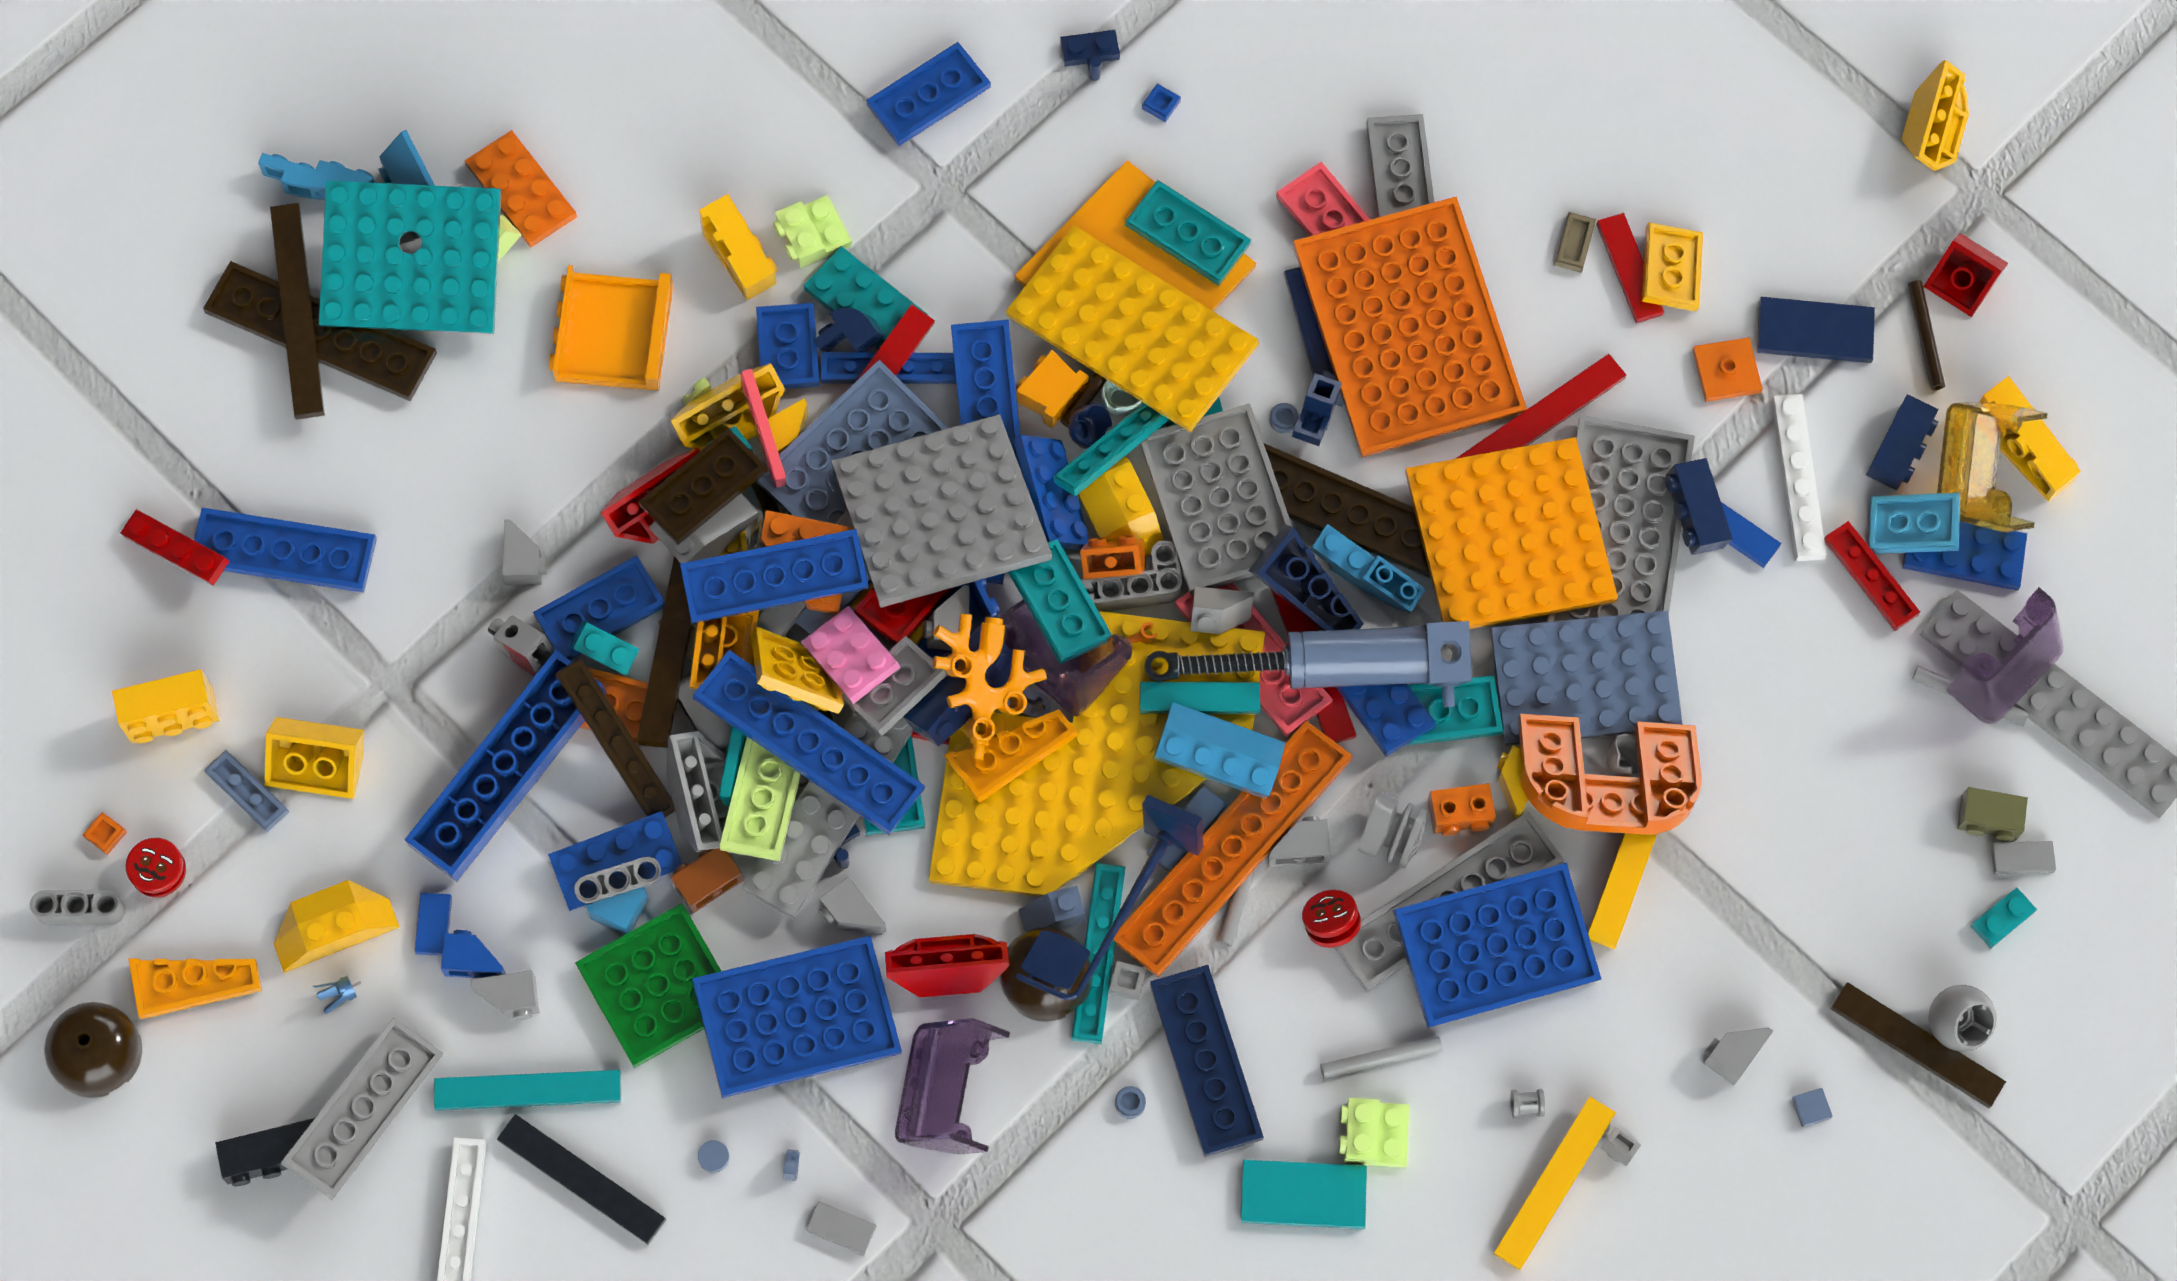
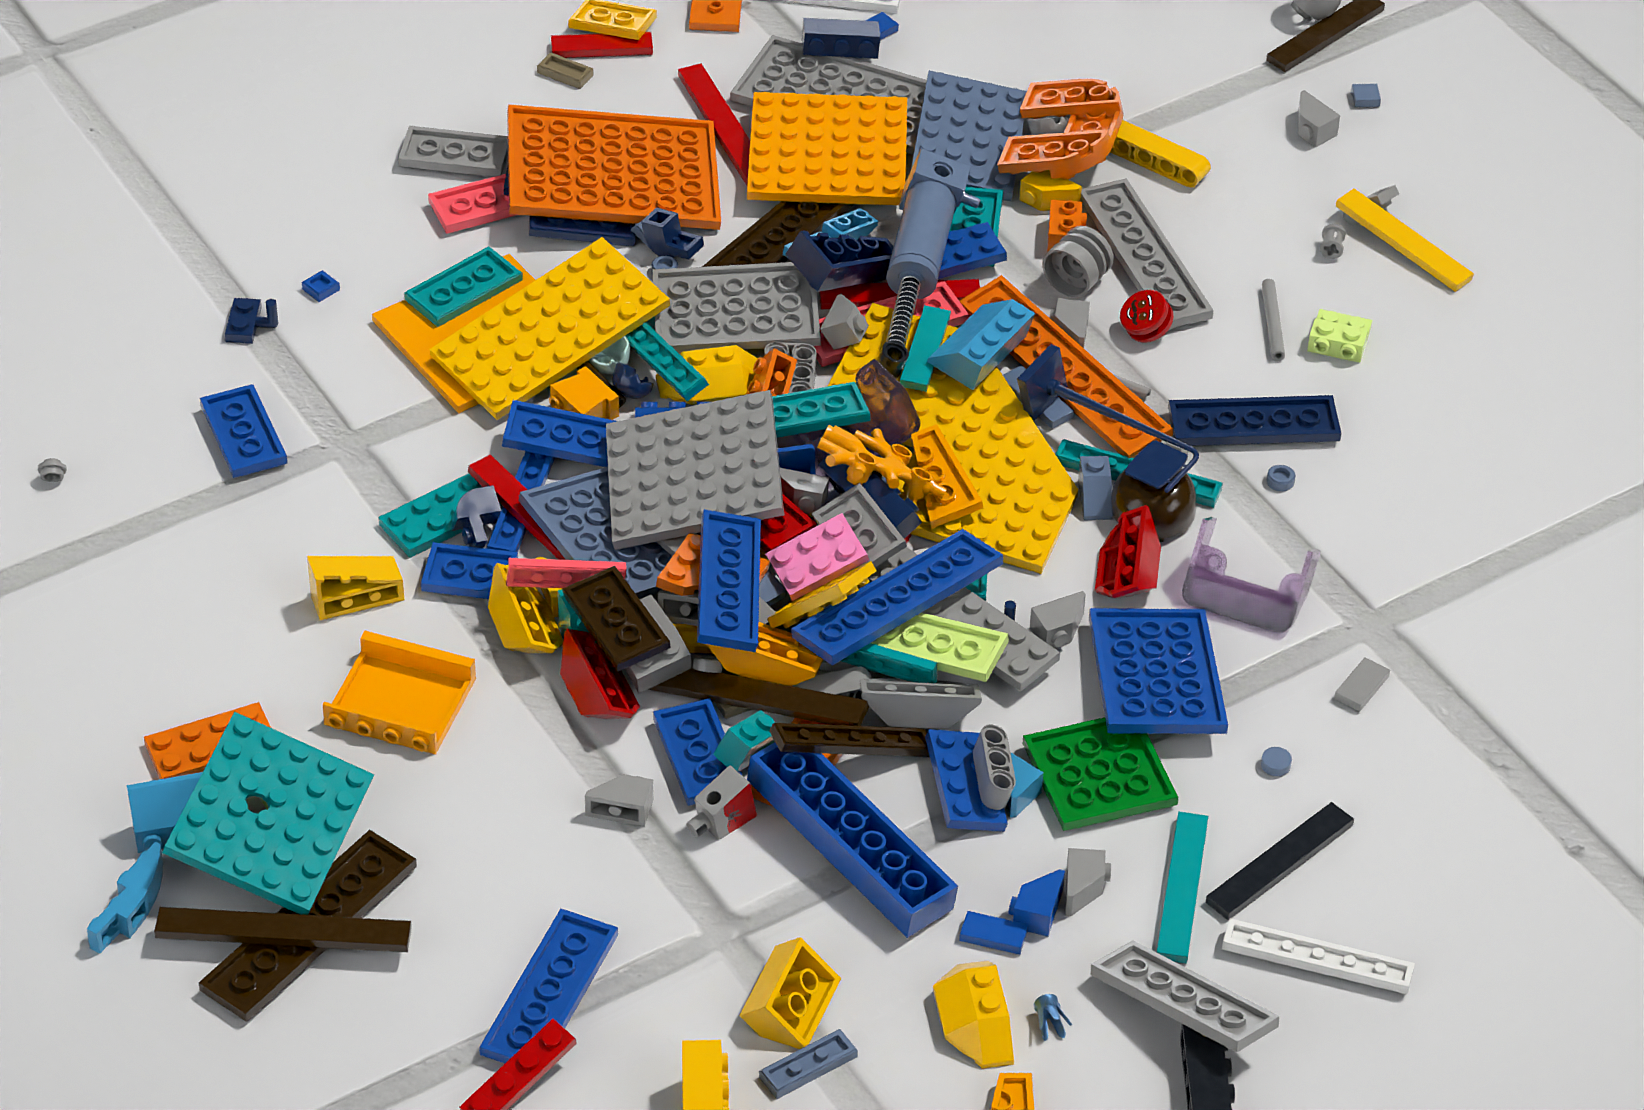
camera: 75 degrees left, 25 degrees down
(701, 387) = (495, 643): yellowish green tile -> none
(706, 878) = (1003, 709): dark orange brick -> none
(791, 1165) = (1296, 705): sand blue tile -> none
(811, 231) = (353, 534): yellowish green plate -> none
(1141, 636) = (851, 370): orange hand -> none
(1303, 1194) = (1384, 387): teal tile -> none
(1496, 945) = (1194, 226): blue plate -> none

